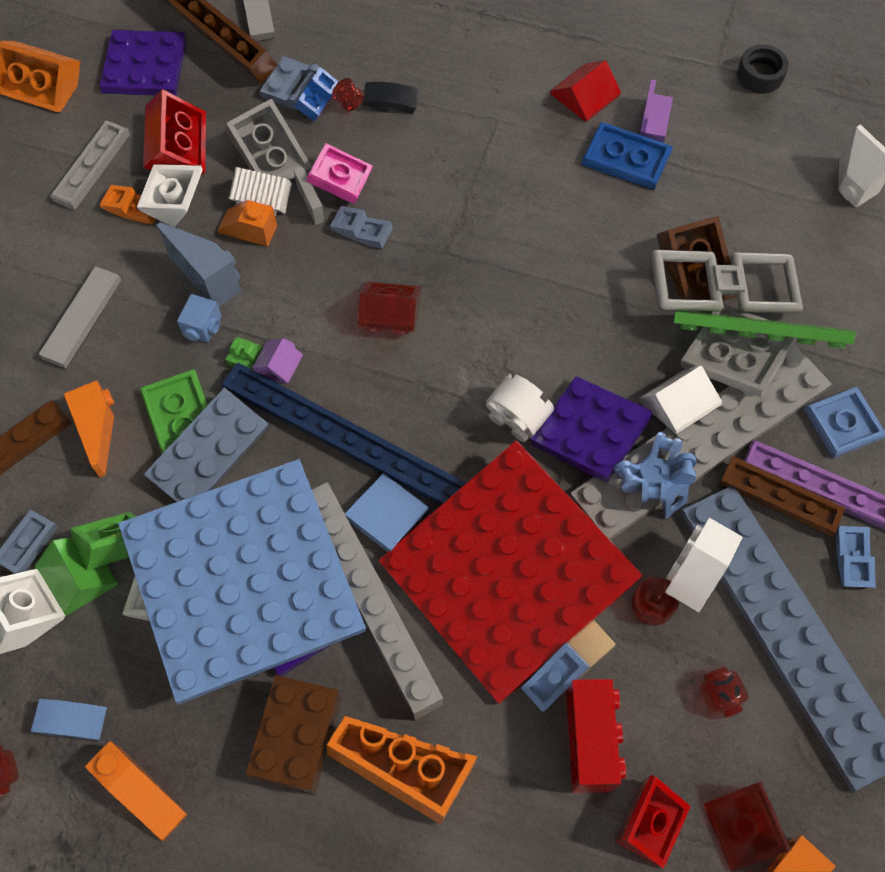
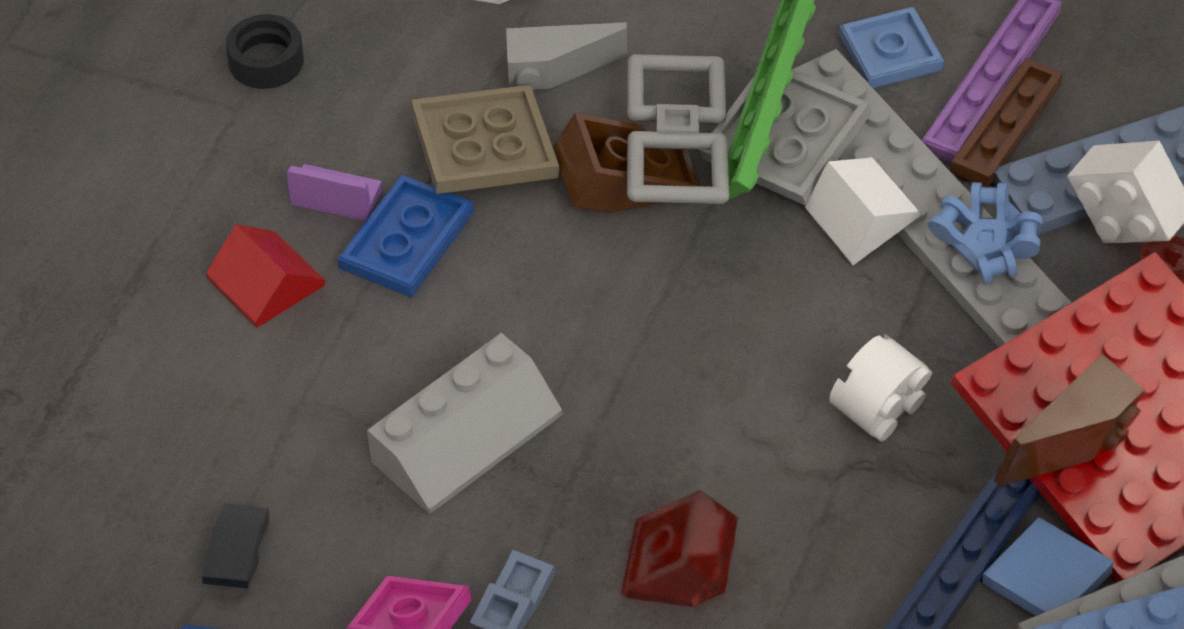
camera: 85 degrees left, 15 degrees down
(348, 94) = (237, 605): clear red wheel -> none
(474, 514) = (1076, 425): none -> reddish brown slope
(480, 191) = (463, 423): none -> light grey slope
(591, 428) = (913, 301): dark purple plate -> none
(706, 182) = (484, 139): none -> dark tan plate
(789, 218) = (562, 53): none -> light grey slope
(854, 558) = (1100, 66): medium blue slope -> none

